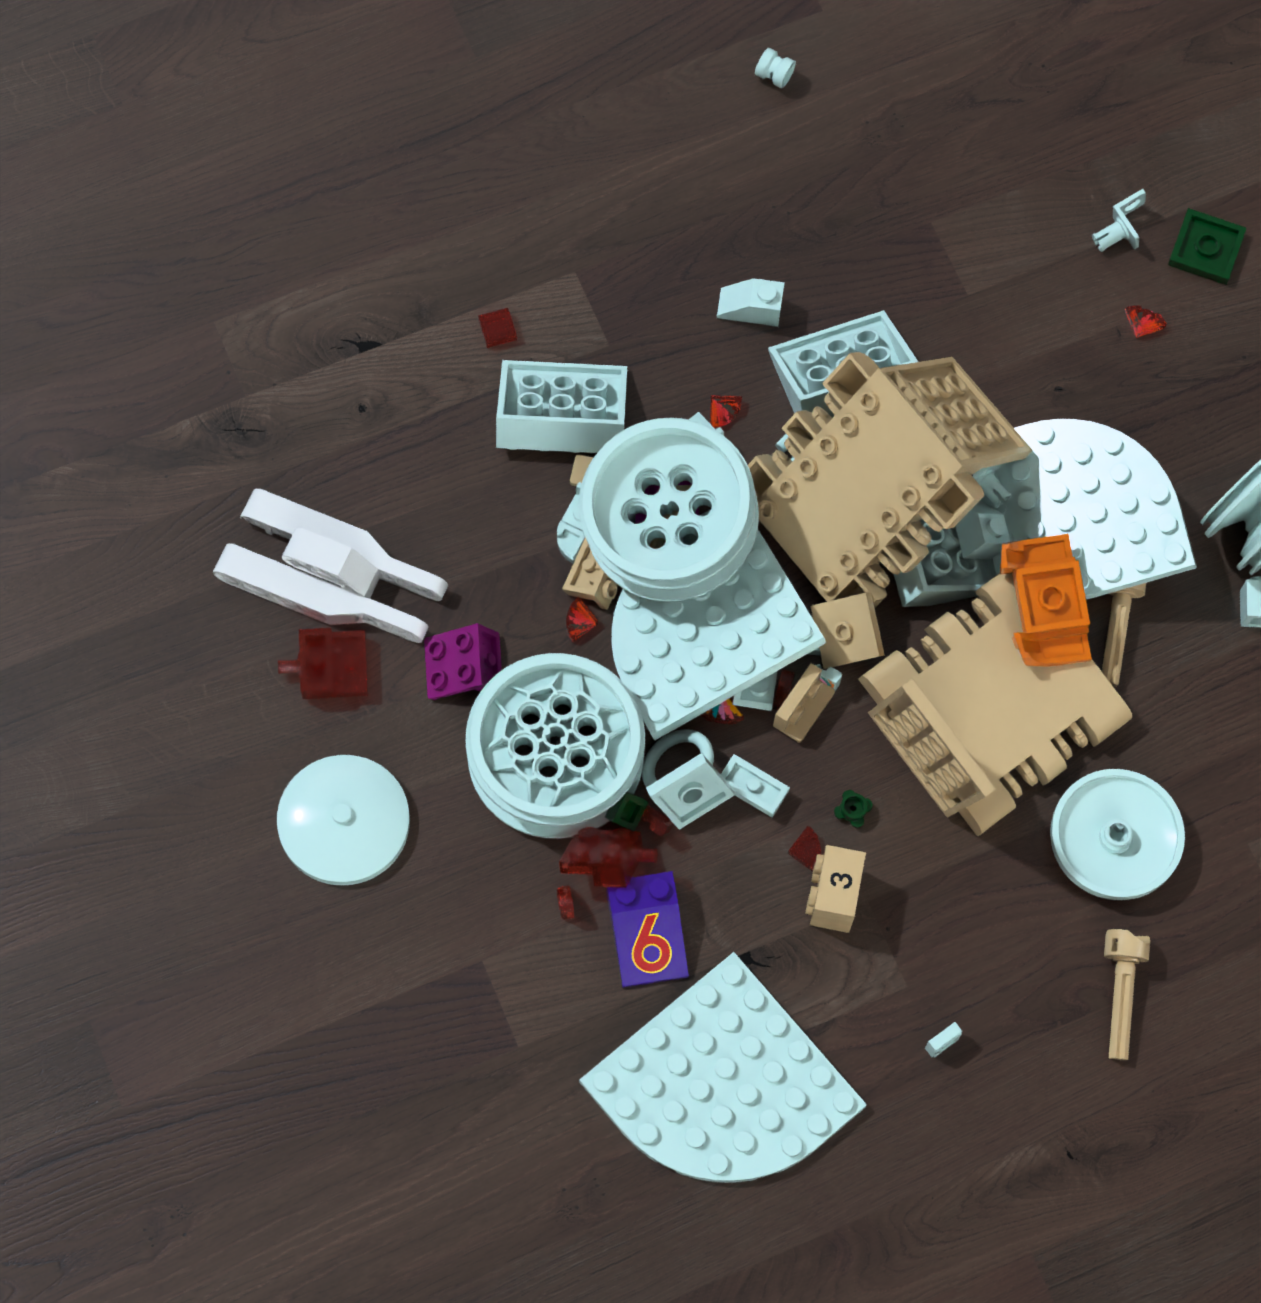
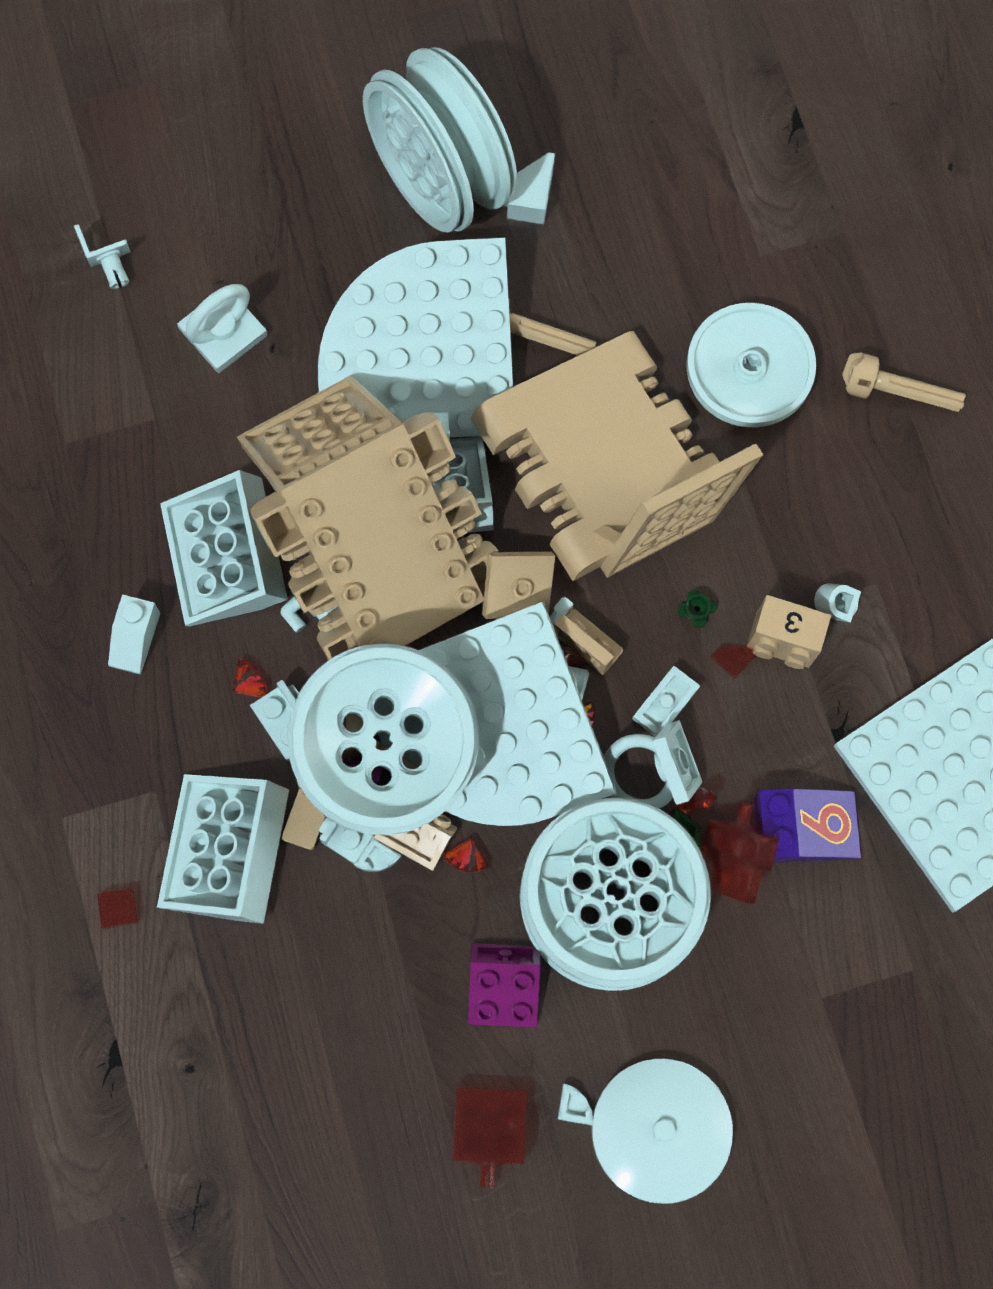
camera: 85 degrees left, 5 degrees up
(329, 552) = (365, 1119): white beam -> none
(358, 739) = (574, 1106): none -> light aqua tile
(565, 902) = (772, 904): clear red tile -> none
(879, 941) = (838, 601): none -> light aqua plate
(943, 1040) = (937, 555): light aqua tile -> none
(1048, 601) = (520, 379): orange piece -> none
(1068, 337) = (223, 326): none -> light aqua tile
(1143, 320) = (211, 255): clear red tile -> none
(1207, 246) = (139, 183): dark green tile -> none

